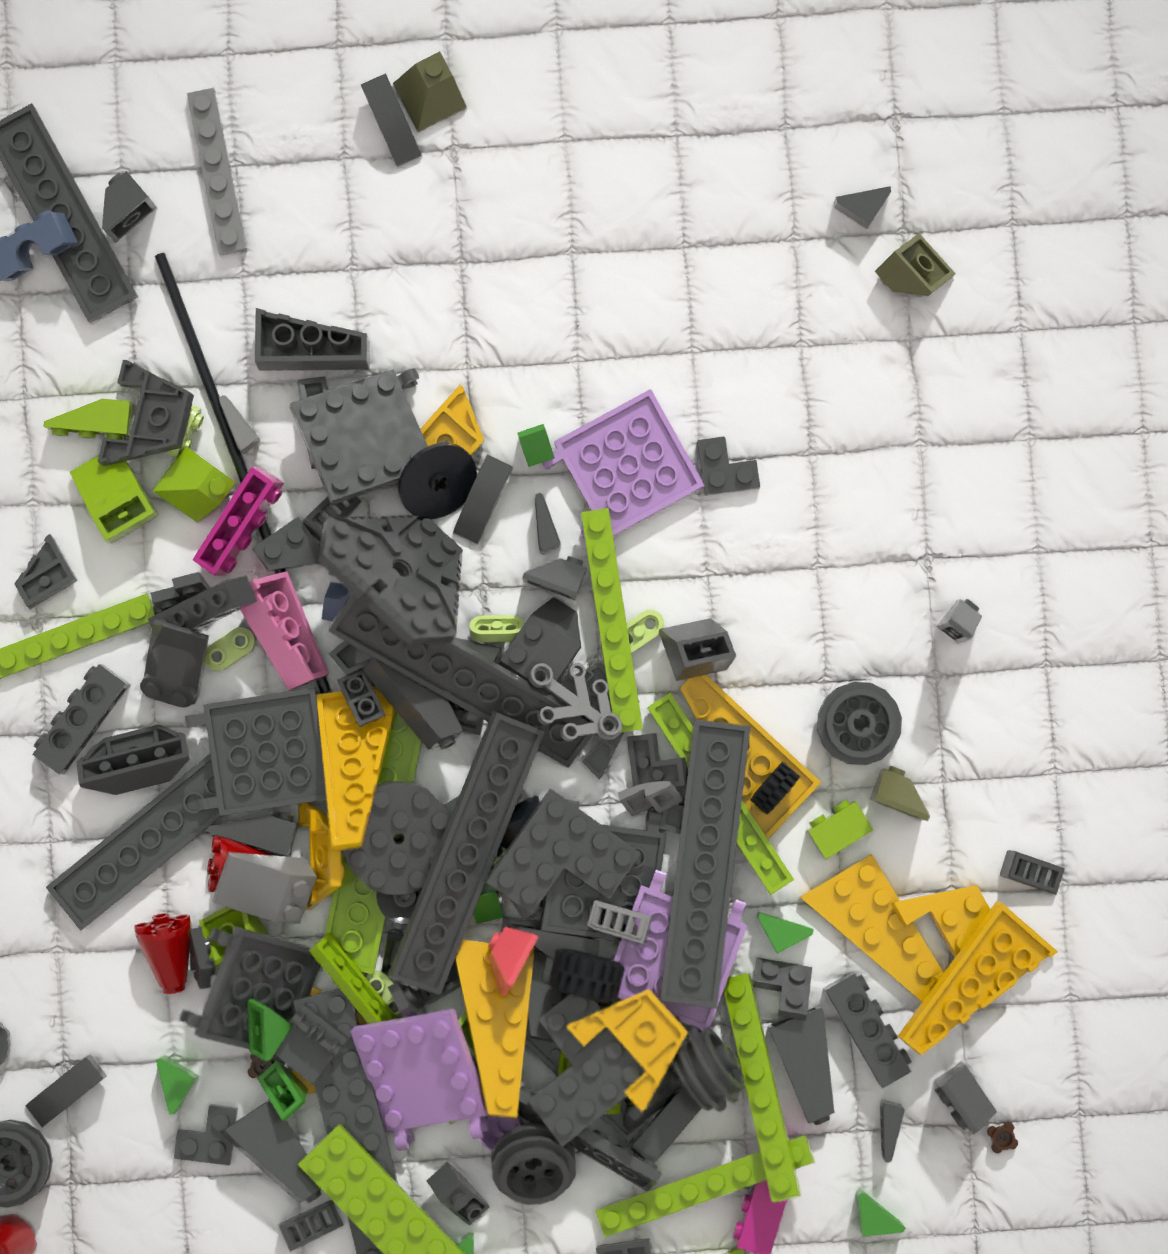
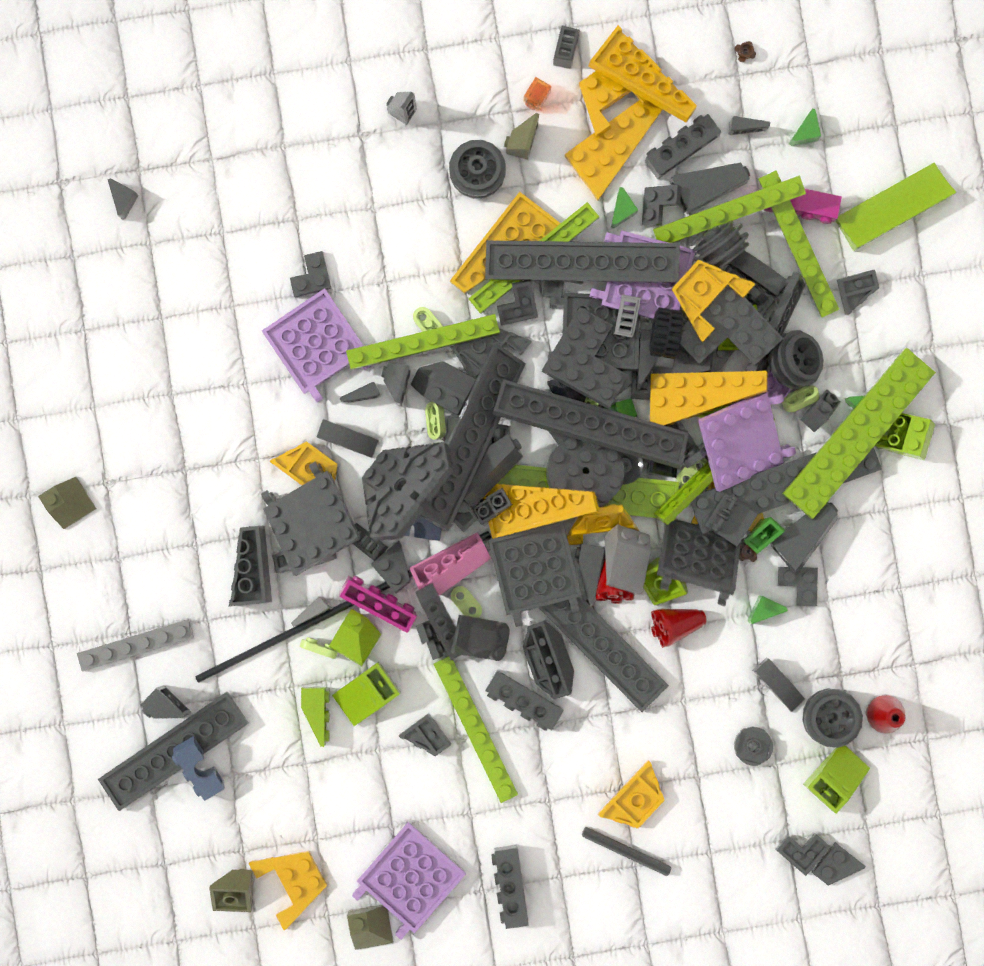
camera: 105 degrees left, 0 degrees up
(158, 419) = (311, 666): dark grey wing -> none
(200, 960) = (680, 599): dark grey wing -> none
(265, 1030) = (725, 548): bright green slope -> none
(304, 1239) = (861, 510): dark grey slope -> none
(391, 119) = (89, 527): dark grey slope -> none
(441, 462) = (325, 464): black piece -> none
(477, 1166) = (800, 398): none -> yellowish green plate
(509, 956) = (658, 386): coral slope -> none
(535, 445) = (307, 404): bright green slope -> none
(578, 704) = (482, 357): light grey plant -> none
(653, 794) = (538, 299): light grey slope -> none
(697, 648) = (436, 281): dark grey slope -> none
(775, 788) = (526, 219): black tyre -> none
(839, 828) = (550, 177): lime brick -> none
(914, 268) = (163, 159): olive slope -> none
(963, 821) = (537, 94): none -> clear orange brick
(964, 1094) = (722, 76): dark grey slope -> none

